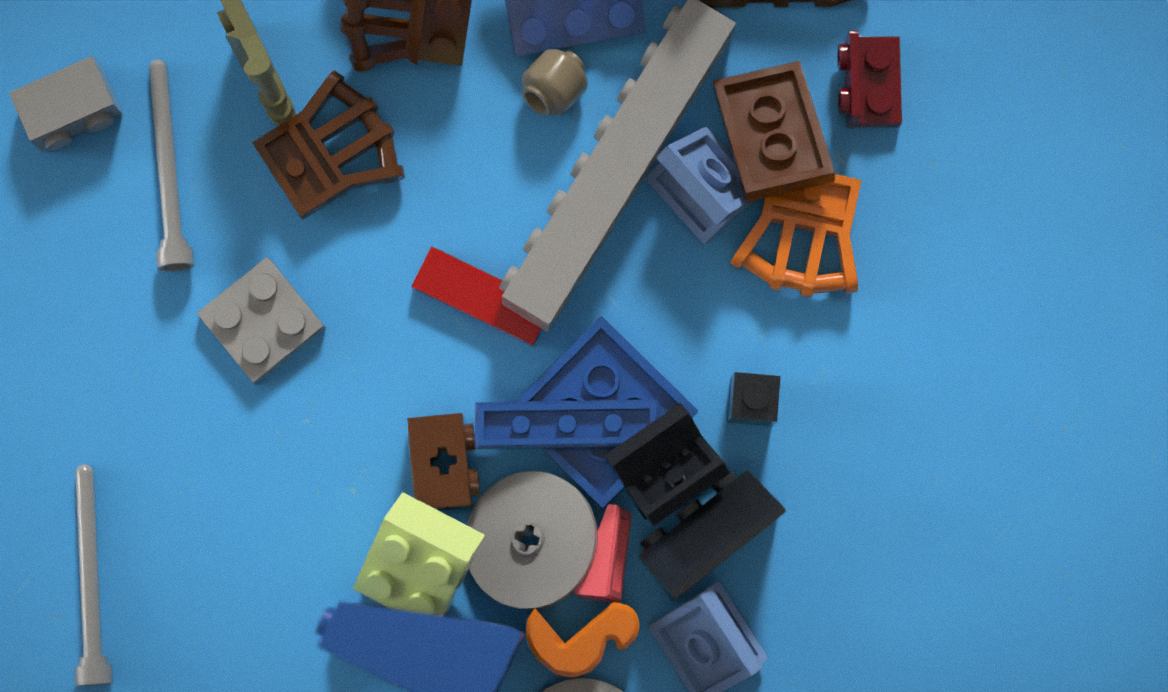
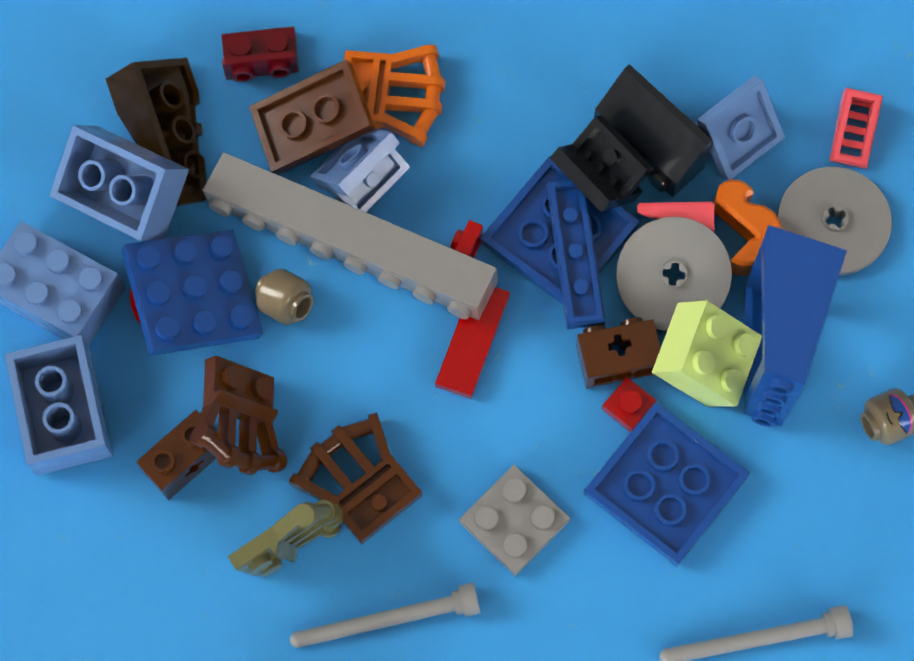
camera: 90 degrees left, 10 degrees down
(279, 498) = (666, 483): none -> blue plate
(381, 468) = (628, 404): none -> red plate
(596, 299) = (468, 240): none -> red plate
(753, 399) = (535, 114): black brick -> none

